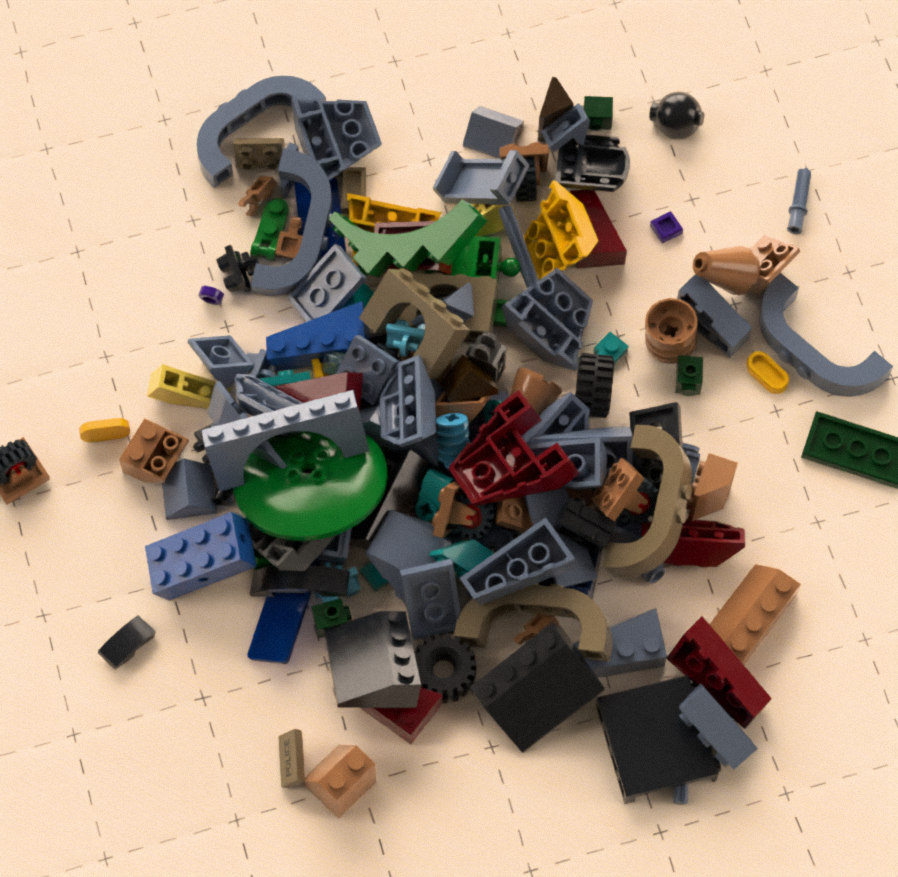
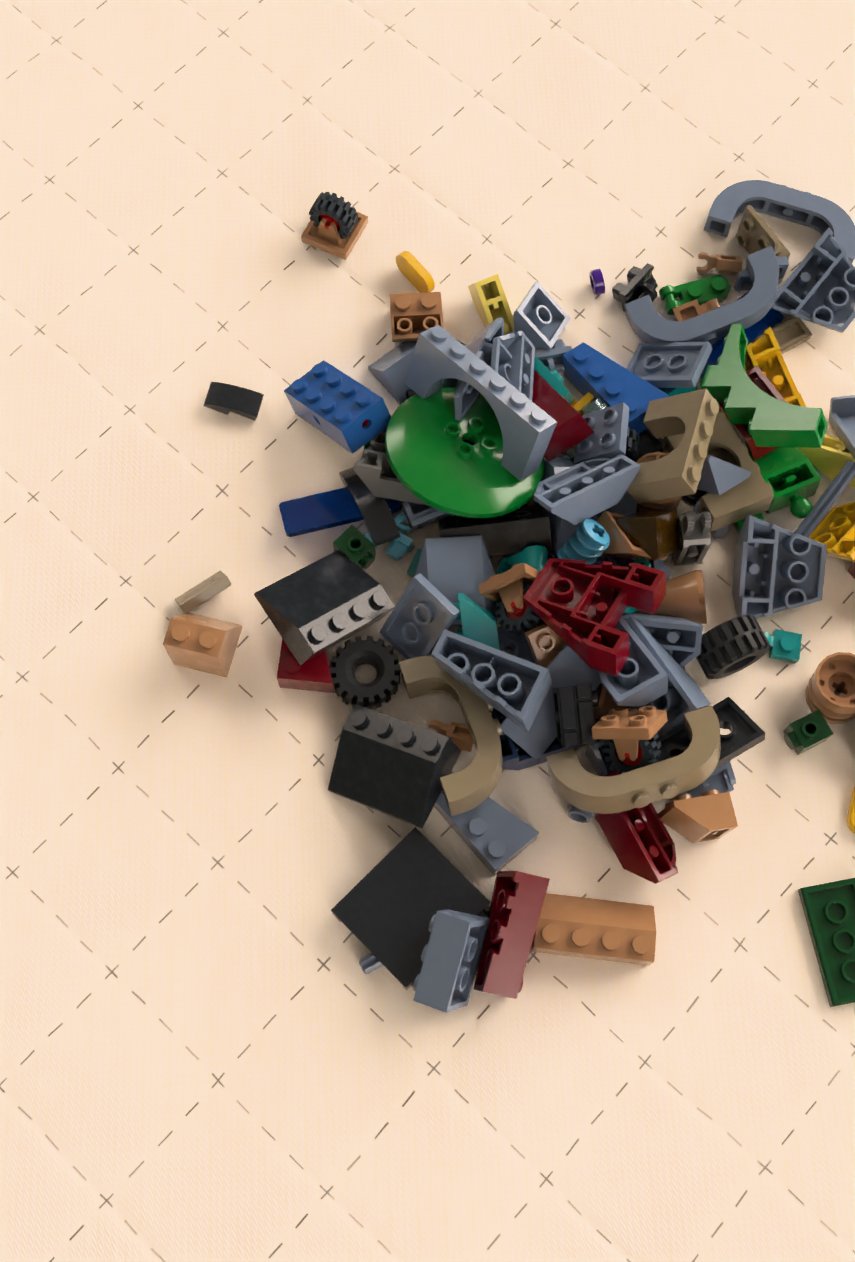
camera: 60 degrees right, 5 degrees up
(404, 337) = (654, 445): medium azure hips -> none

